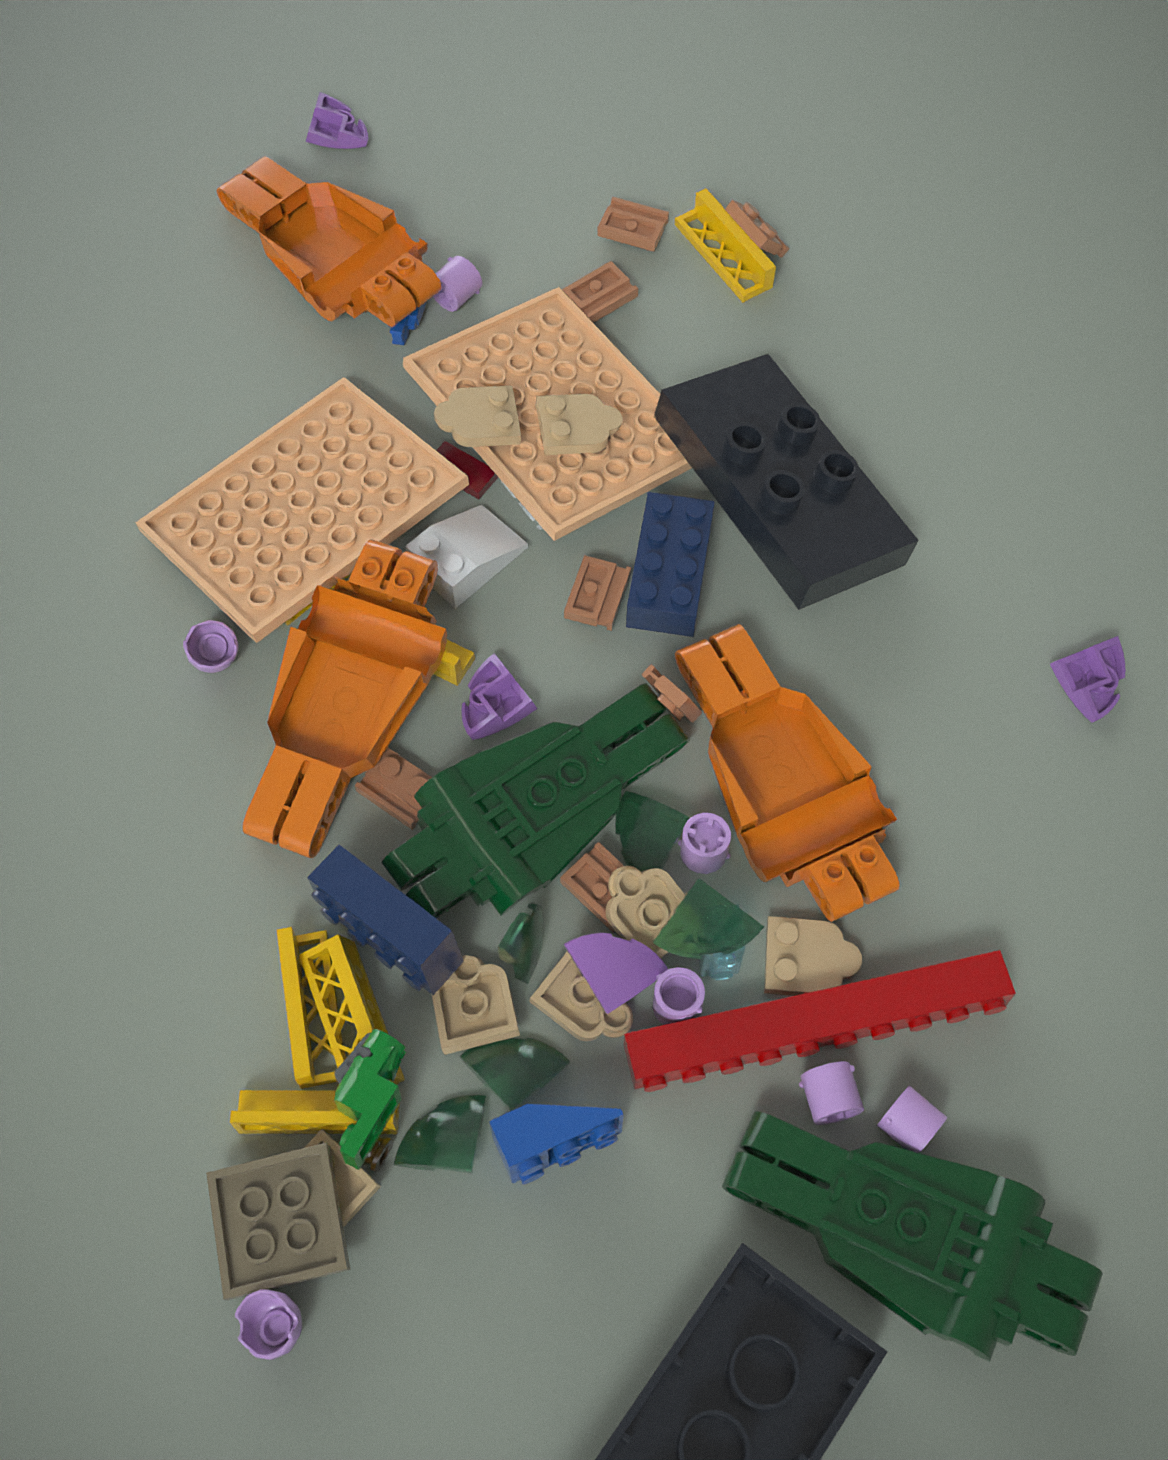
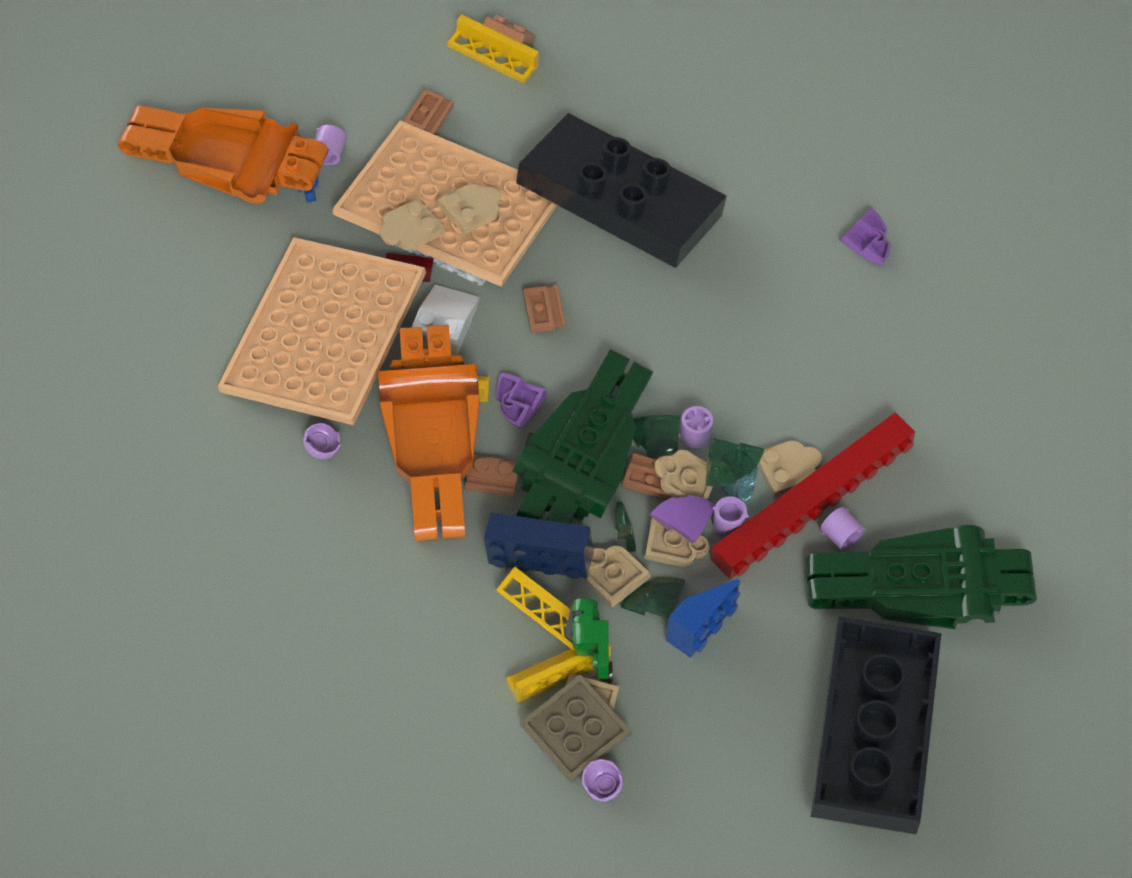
camera: 30 degrees left, 5 degrees down
(296, 1008) = (514, 621): yellow fence -> none
(335, 125) = (167, 65): medium lavender brick -> none
(444, 1136) = (639, 649): clear green brick -> none
(633, 224) = (422, 57): nougat plate -> none
(670, 564) = (580, 272): dark blue brick -> none
(671, 696) = (630, 348): nougat plate -> none
(789, 778) = (721, 368): orange piece -> none
(912, 1121) = (893, 523): lavender piece -> none

